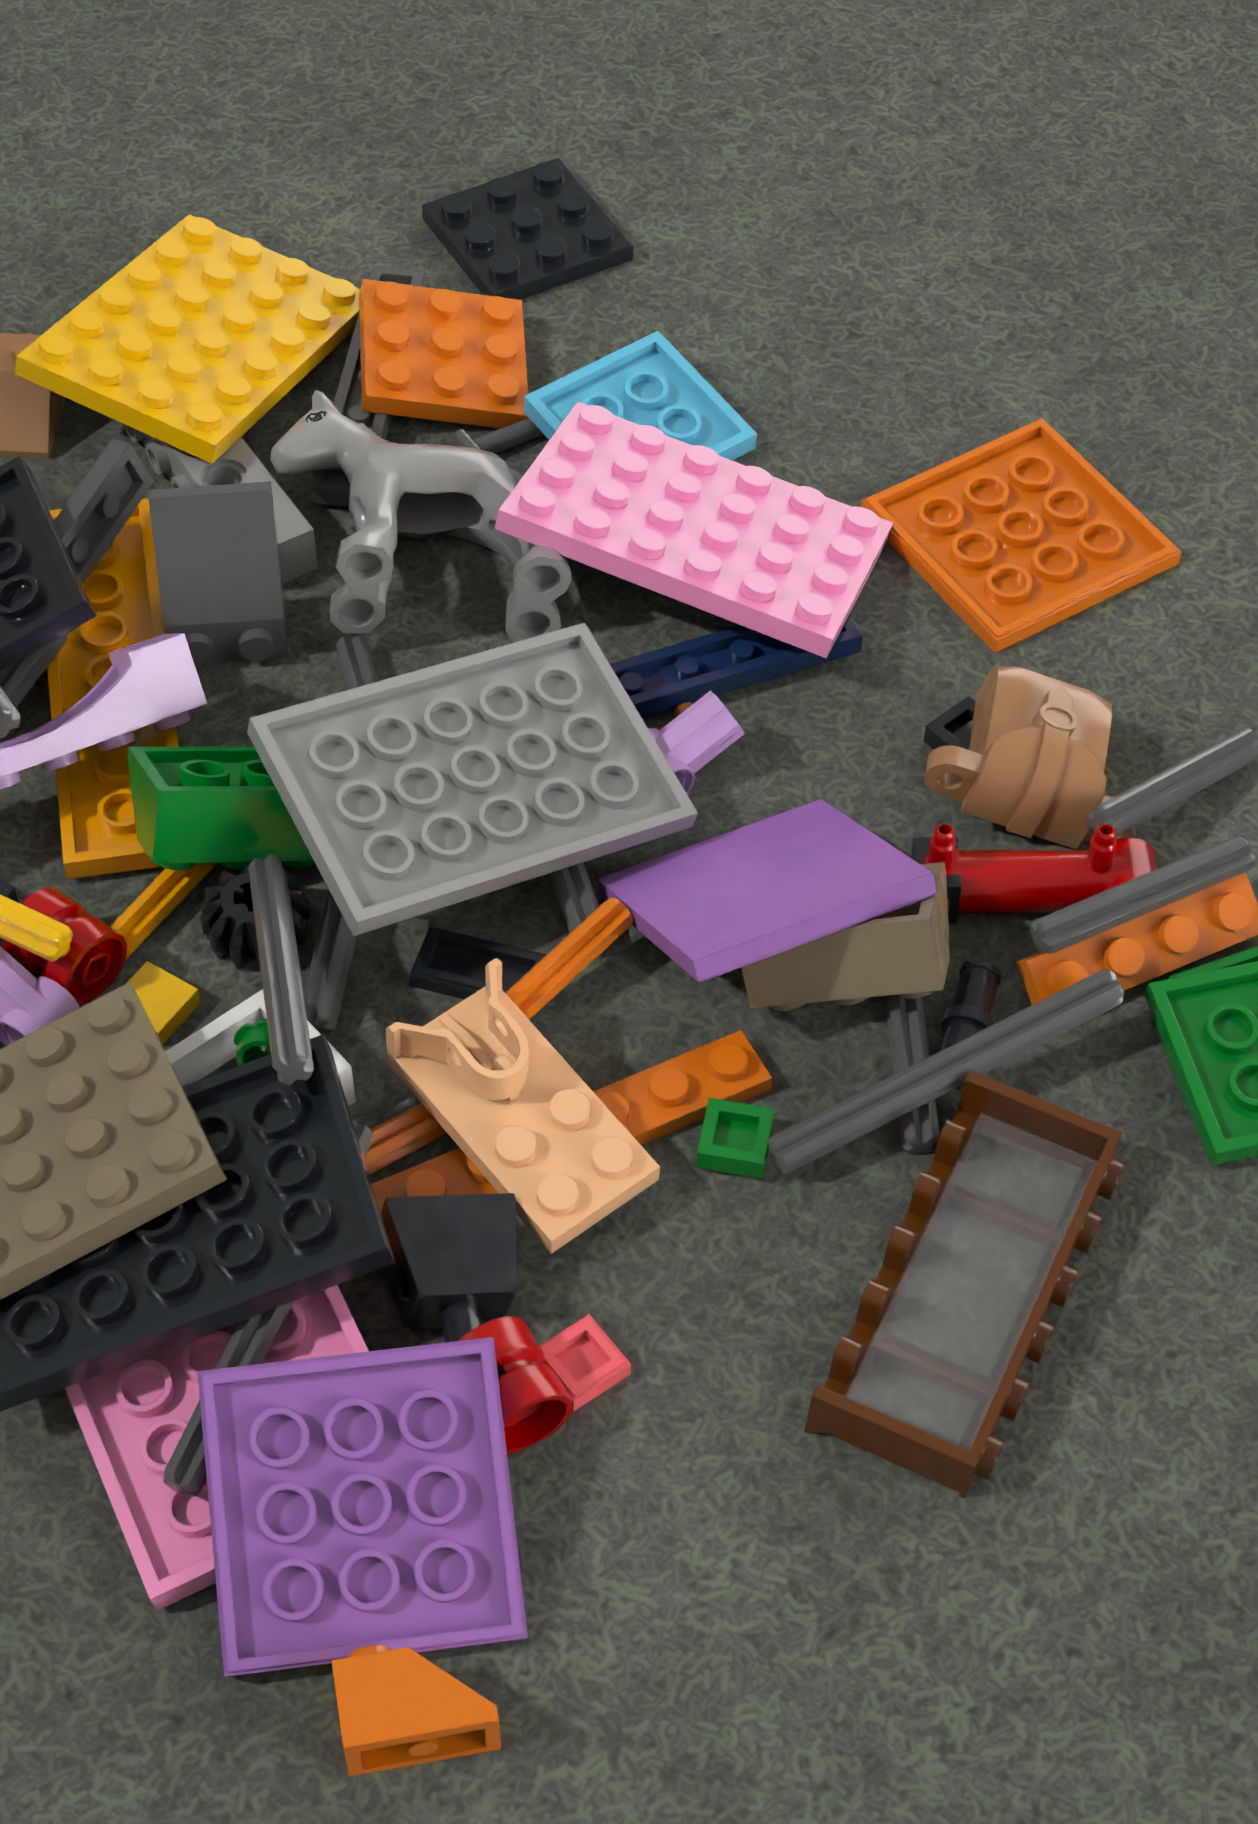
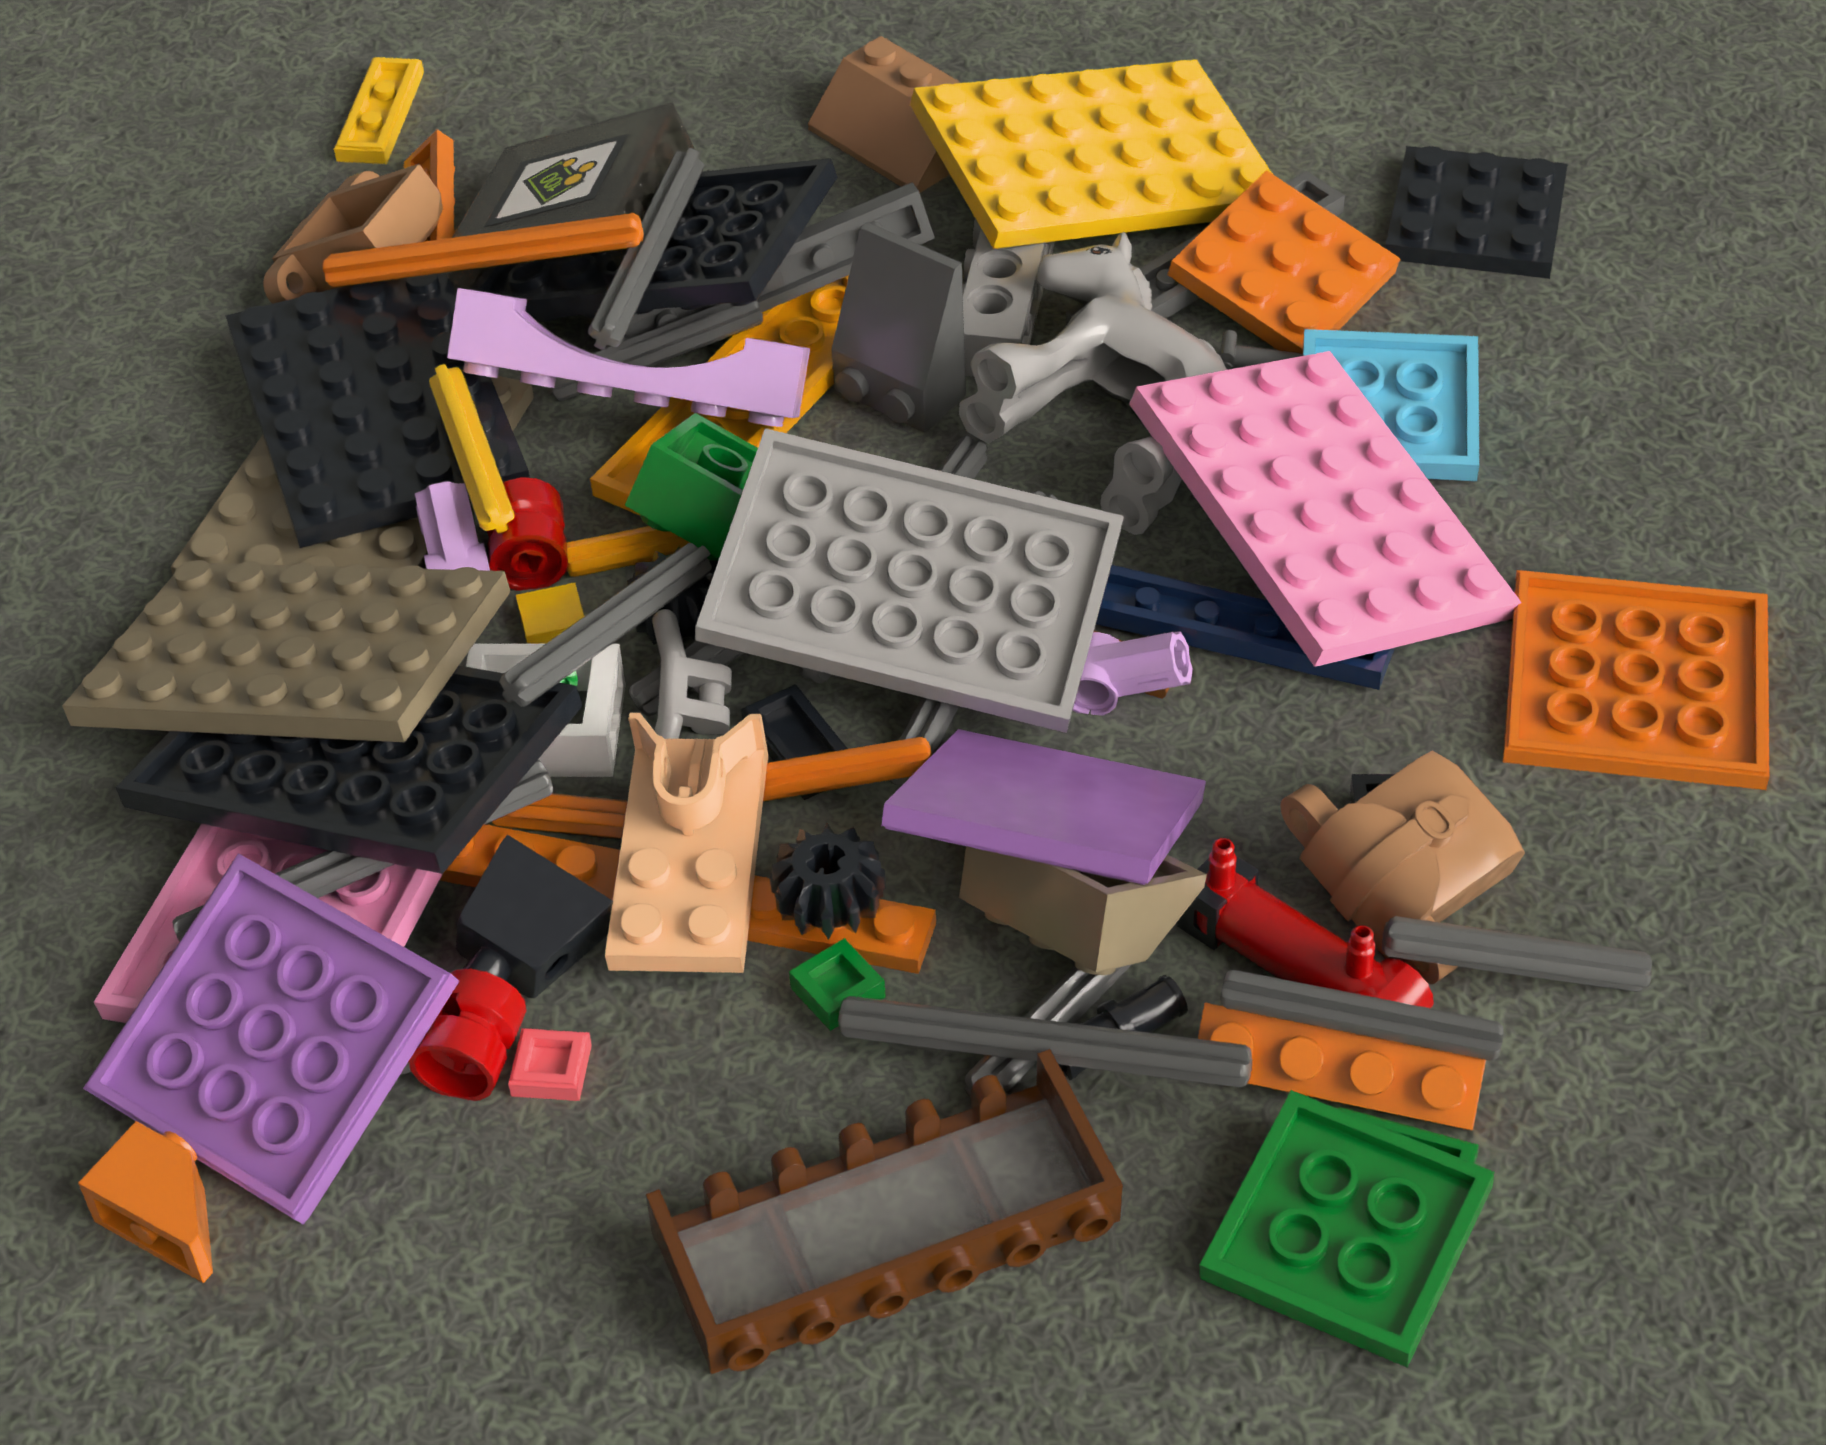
camera: 45 degrees right, 5 degrees down
(364, 989) = (676, 673): none -> light grey piece
(665, 1059) = (827, 880): none -> black gear

